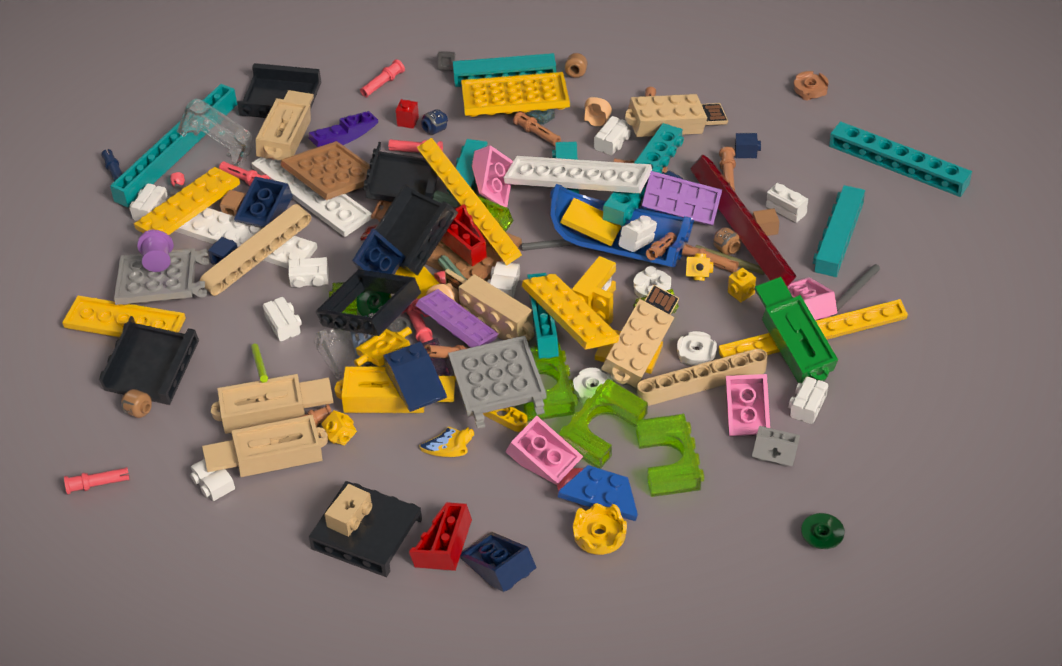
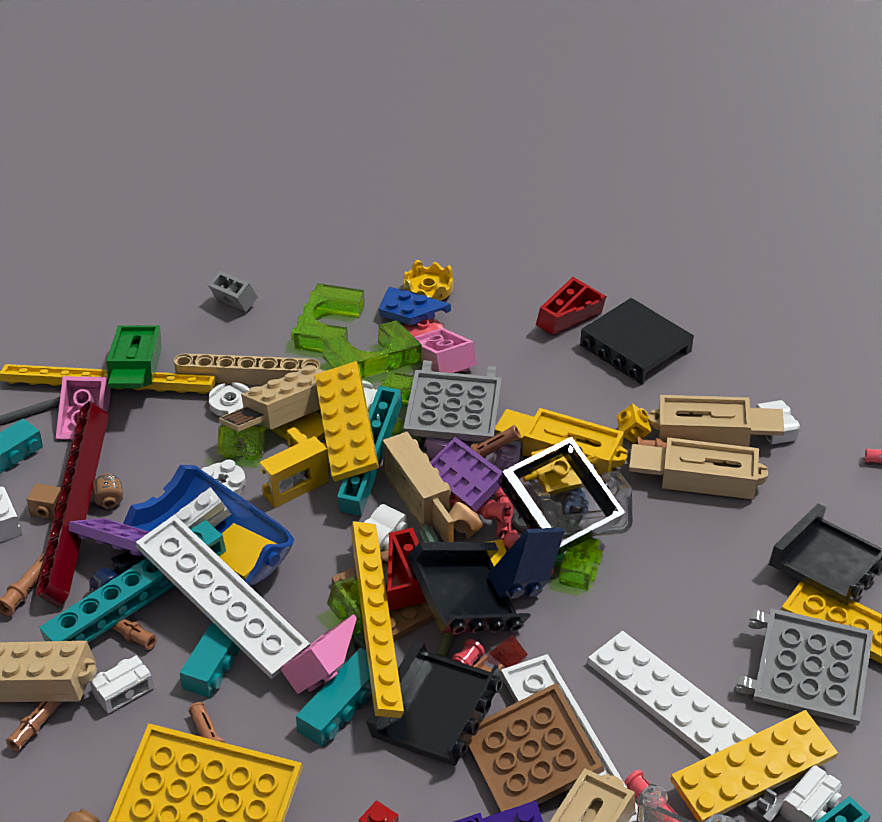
camera: 160 degrees left, 5 degrees down
(136, 403) = (852, 516): medium nougat head -> none
(155, 250) = (811, 670): medium lavender piece -> none
(221, 249) = (716, 678): dark blue brick -> none
(231, 202) = (685, 750): medium nougat brick -> none
(255, 249) = (671, 652): tan beam -> none
(259, 363) = (702, 508): lime bar -> none
(264, 202) = (644, 727): dark blue slope -> none
(282, 318) = (661, 565): white brick -> none
(308, 272) = (610, 614): white brick -> none
(348, 510) = (651, 331): tan brick -> none
(408, 146) = (382, 761): coral pin -> none
(414, 376) = (542, 419): dark blue slope -> none
(434, 121) = (346, 795): dark blue head -> none
(449, 443) = (526, 391): yellow arm -> none
(499, 561) = (526, 284): dark blue slope -> none
(547, 244) = (307, 570): dark grey bar -> none
(597, 111) = (112, 725): light nougat hair -> none
(660, 251) = (187, 492): nougat pin -> none
(691, 267) = (160, 468): yellow brick -> none
(718, 261) = (144, 489): nougat pin -> none
(741, 284) = (133, 435): yellow brick -> none
(743, 264) = (127, 491): olive bar -> none
(747, 404) = (224, 336): bright pink slope -> none
(808, 400) = (172, 321): white brick -> none
(822, 531) = (246, 234): dark green dish -> none

